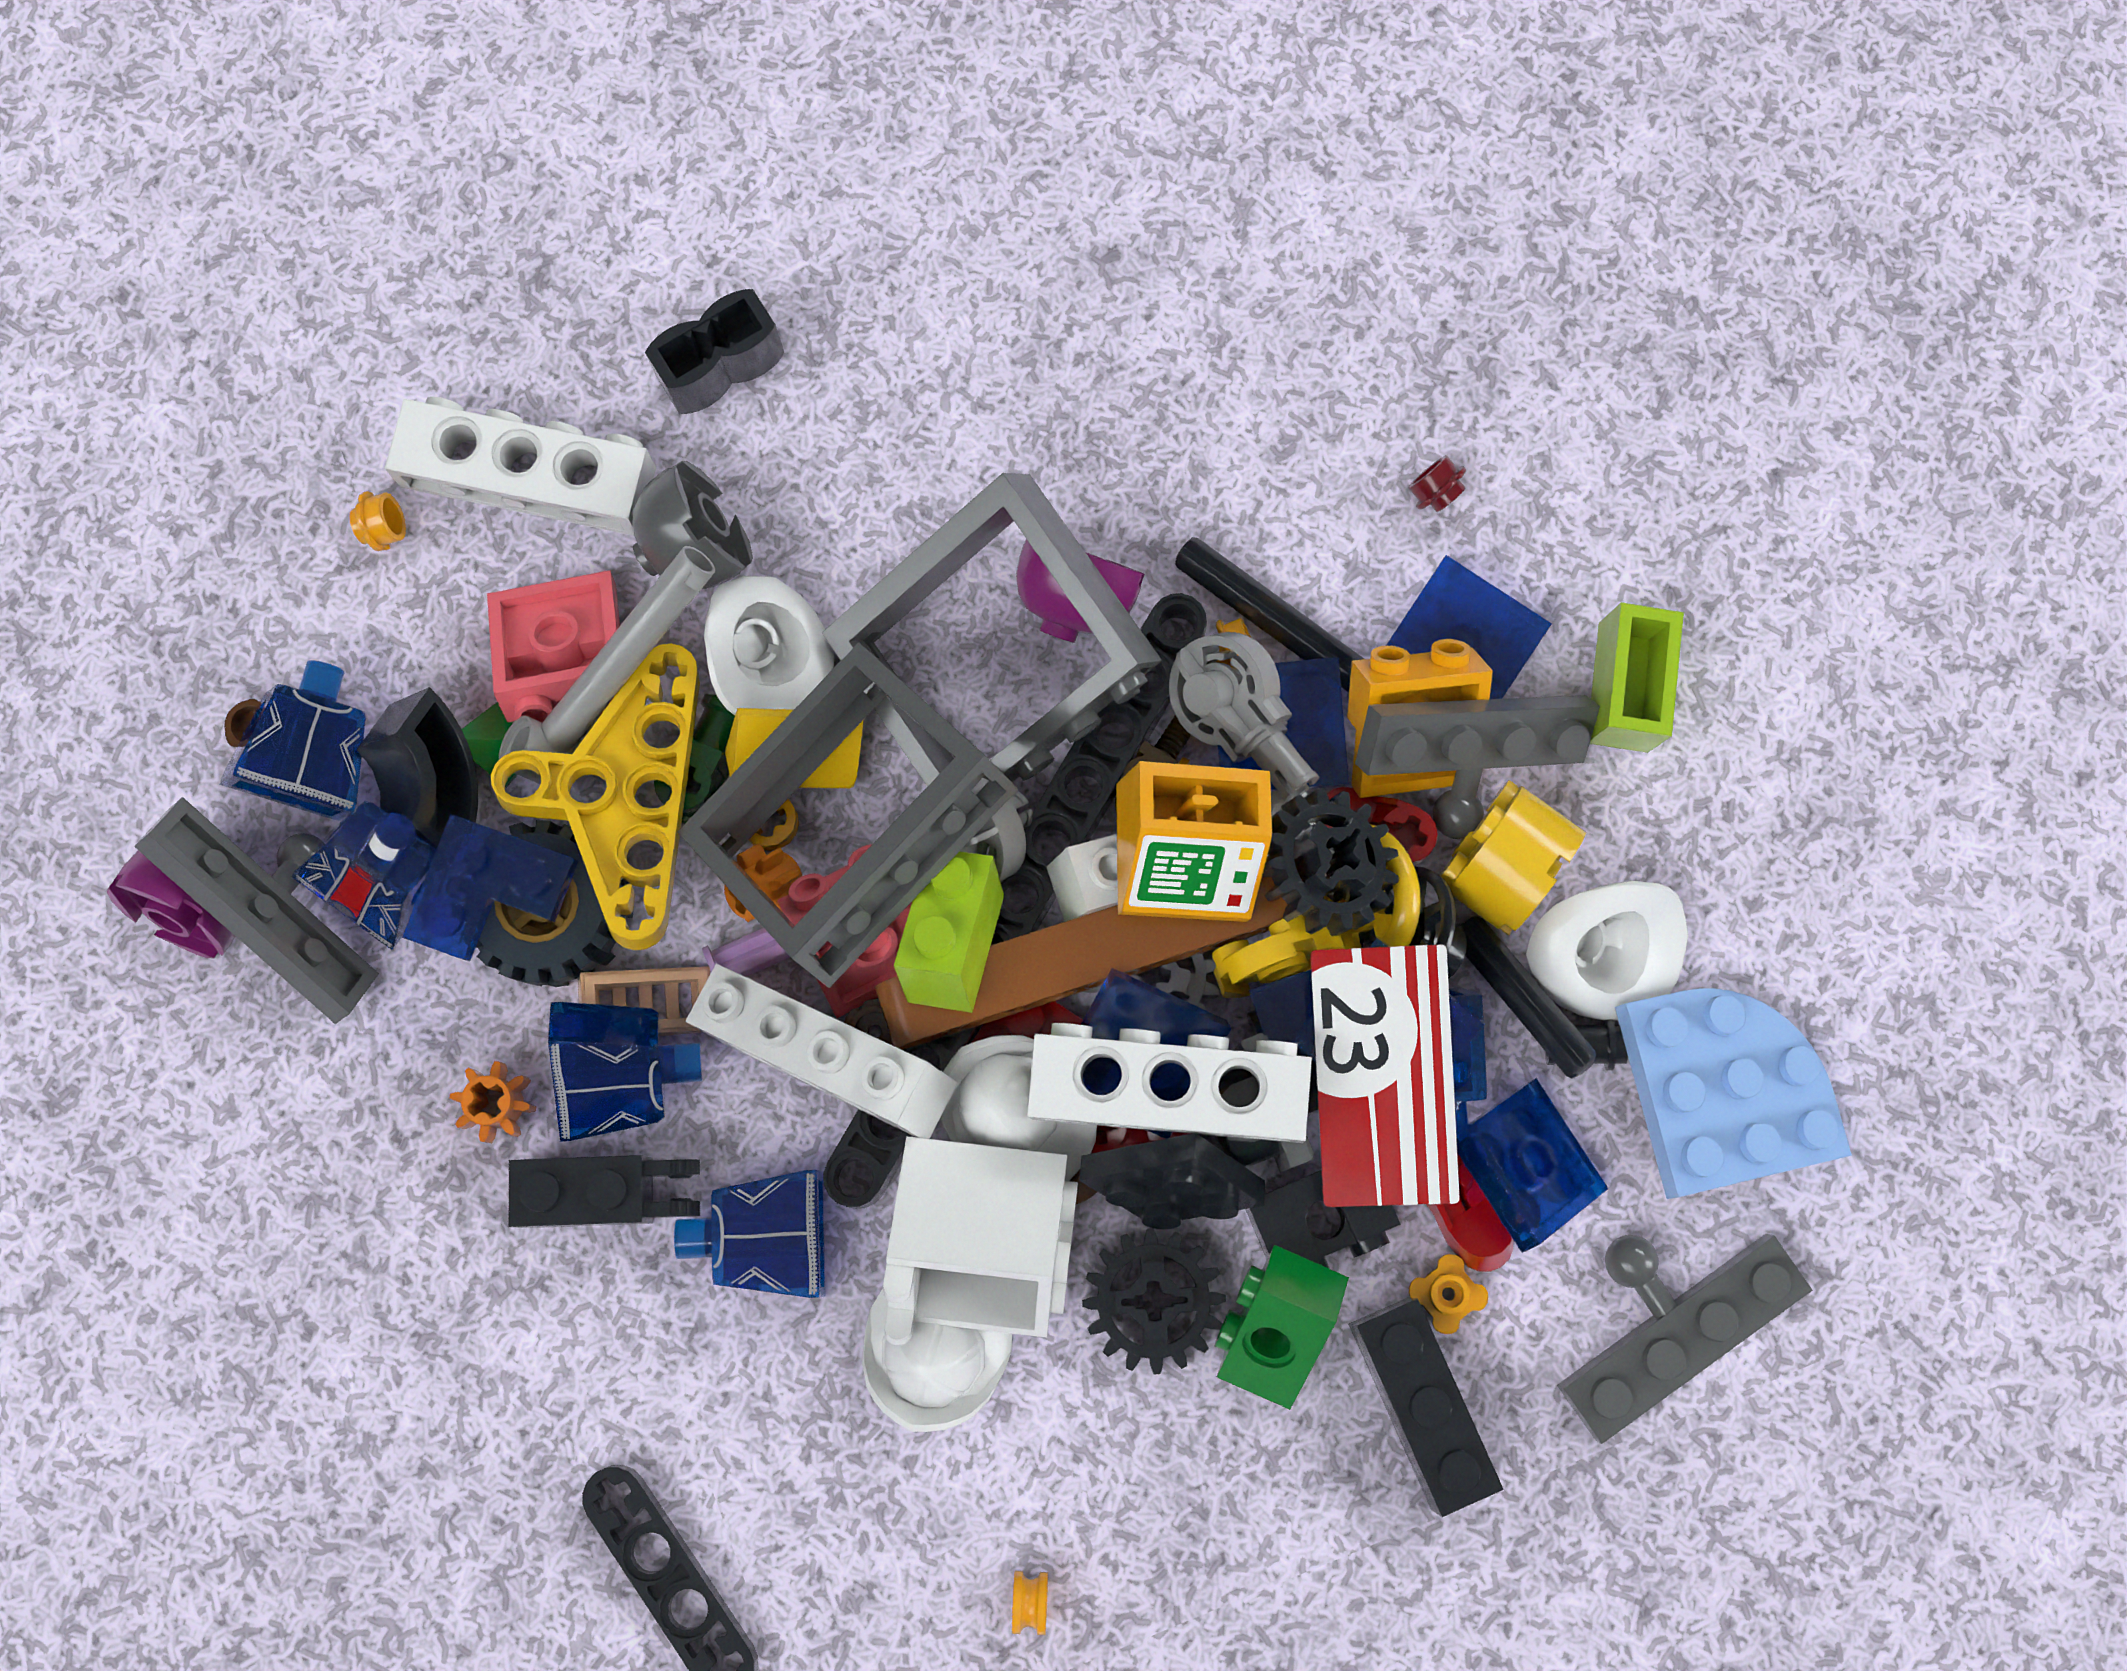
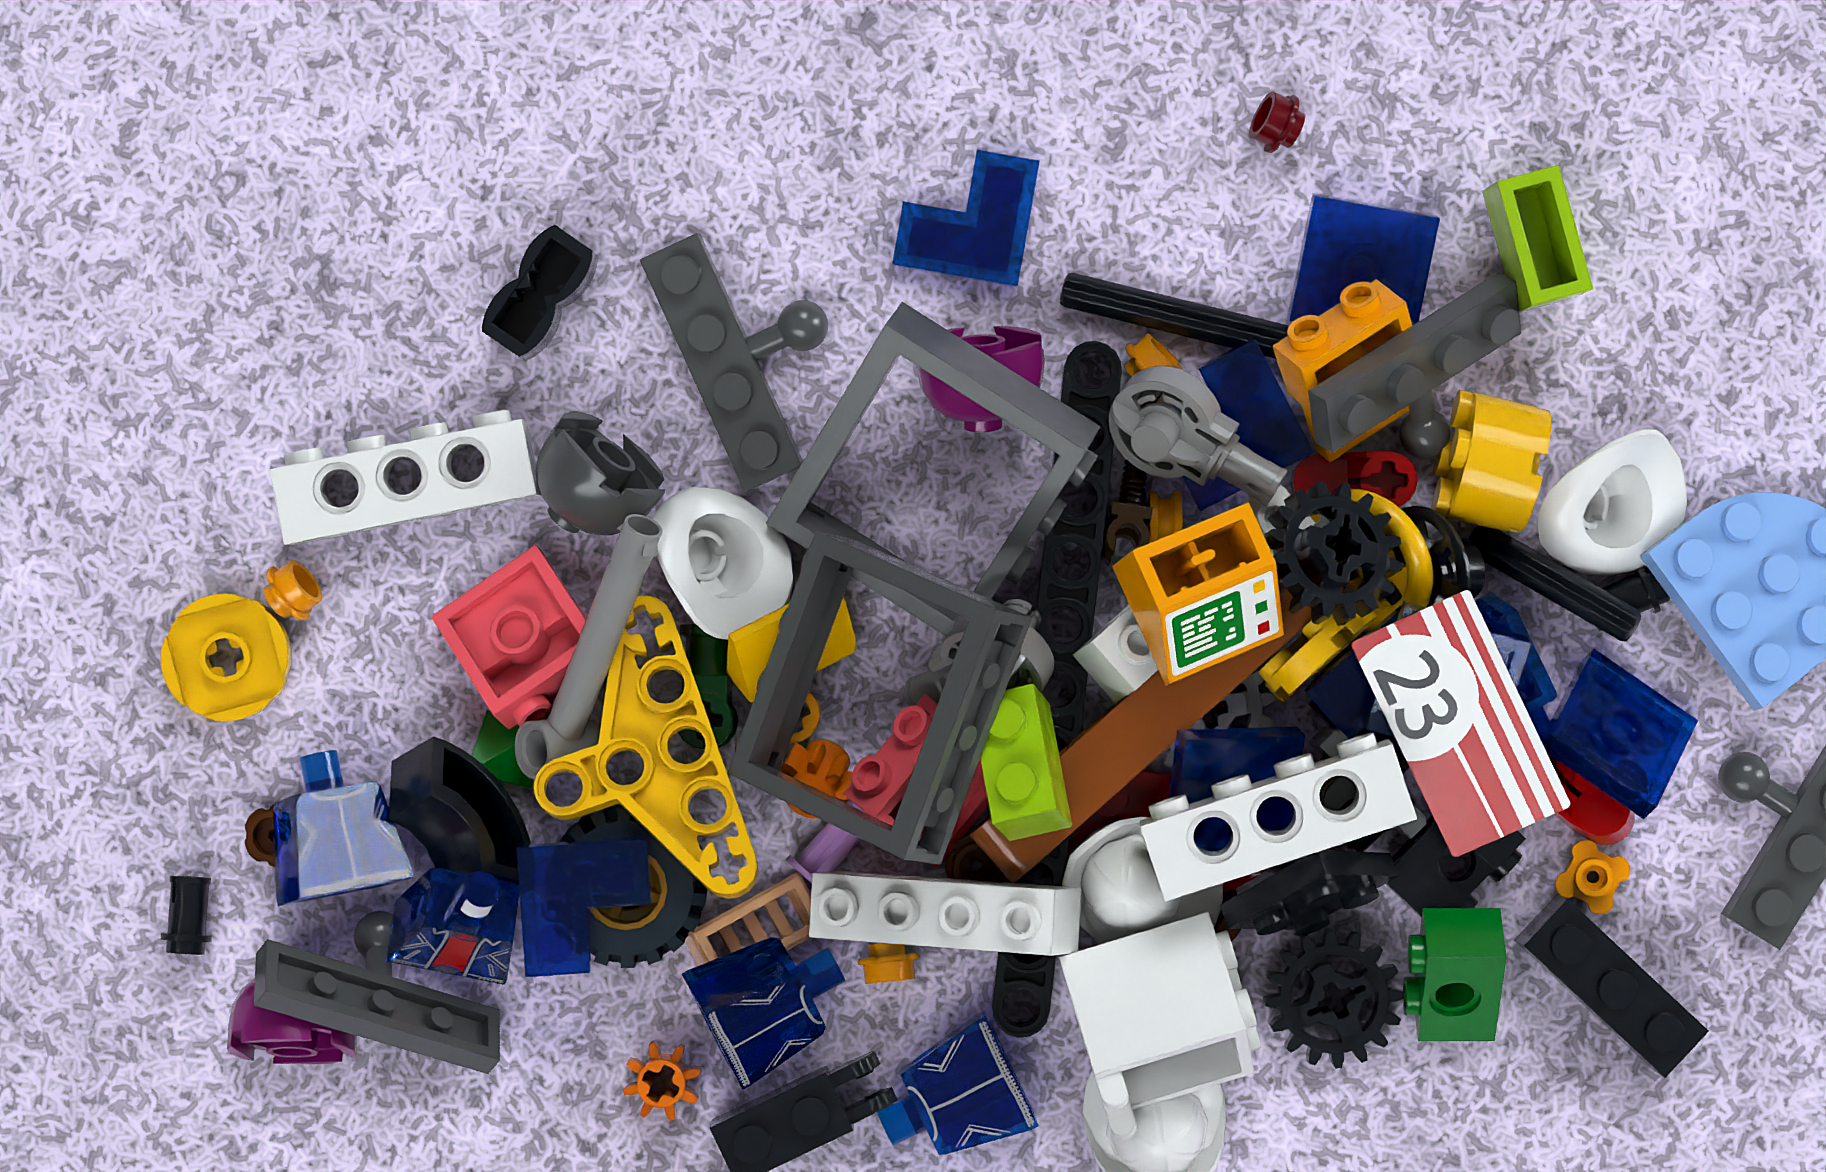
camera: 30 degrees left, 10 degrees up
(142, 765) = (187, 915): none -> black pin
(272, 526) = (207, 688): none -> yellow plate
(752, 1085) = (888, 963): none -> light orange plate
(854, 483) = (727, 360): none -> dark grey plate
(1132, 478) = (985, 239): none -> clear blue plate

